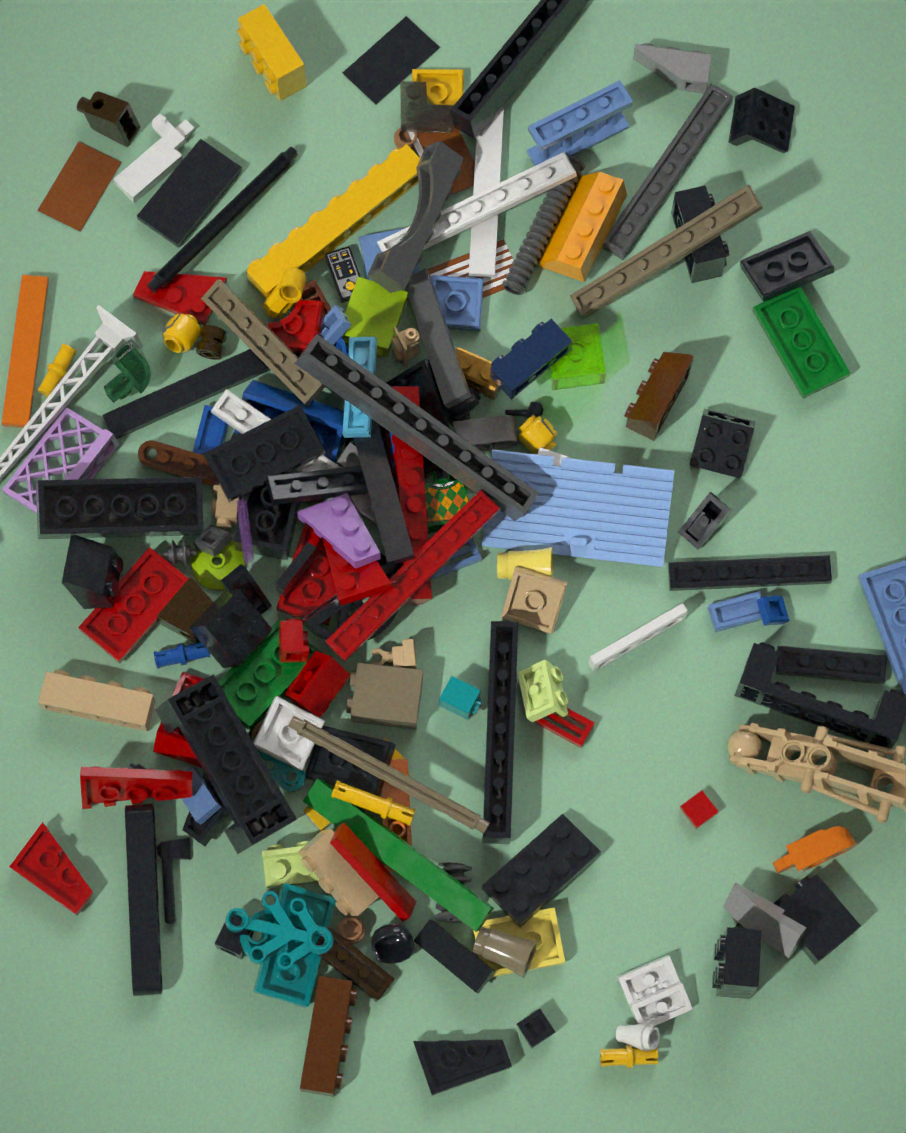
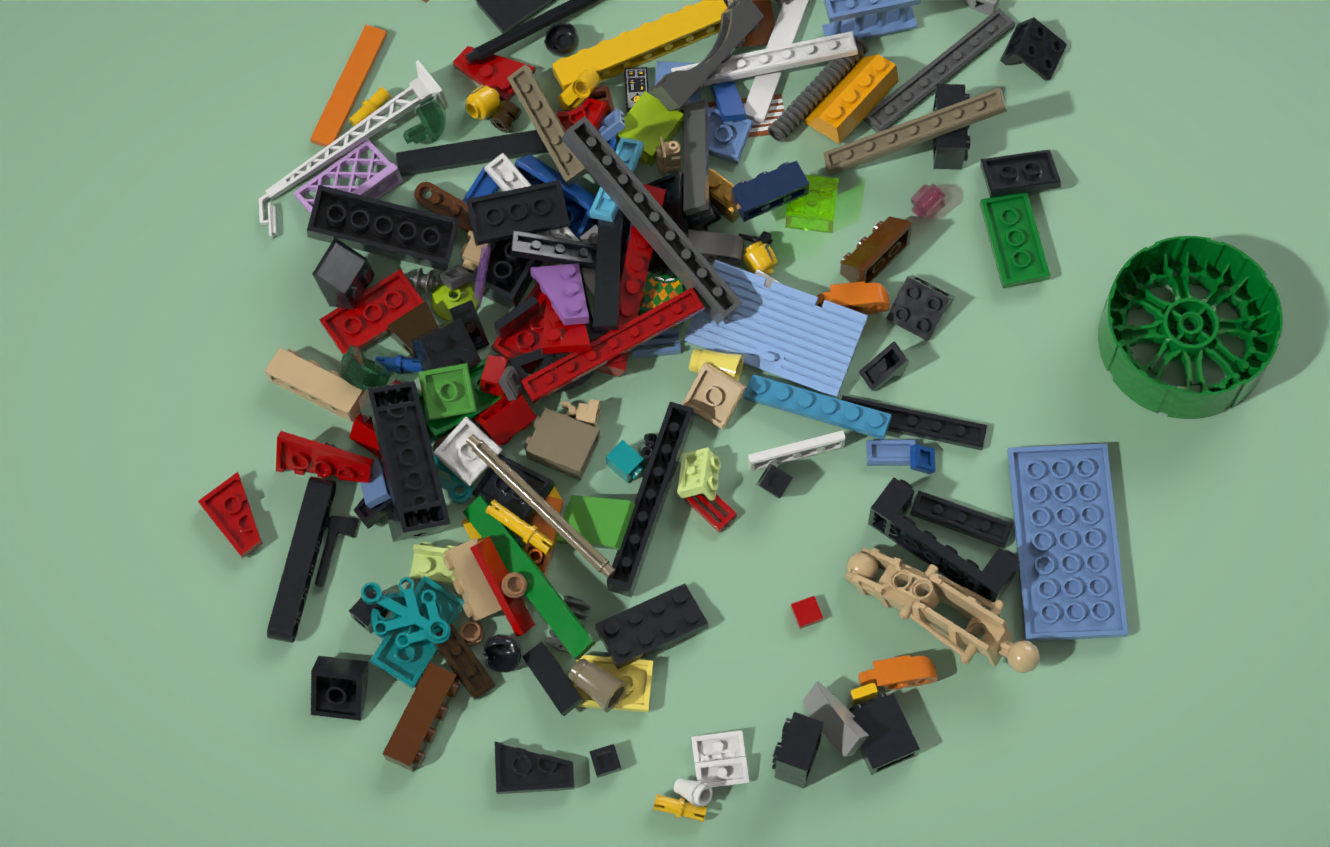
camera: 20 degrees right, 5 degrees down
(145, 675) = (361, 371): none -> clear green brick
(228, 1029) = (339, 687): none -> black slope
(247, 238) = (561, 39): none -> black hair
(248, 674) = (447, 391): none -> bright green tile
(314, 646) = (511, 383): none -> dark grey tile
(386, 868) = (514, 585): none -> medium nougat plate
(451, 264) = (728, 101): none -> blue tile
(453, 771) = (599, 520): none -> bright green tile
(479, 673) = (646, 447): none -> black arm
(625, 677) = (774, 481): none -> black brick
(646, 582) = (818, 407): none -> dark azure plate
(653, 451) = (858, 296): none -> orange piece
(698, 323) = (927, 201): none -> clear pink head
(784, 882) = (863, 694): none -> yellow tile

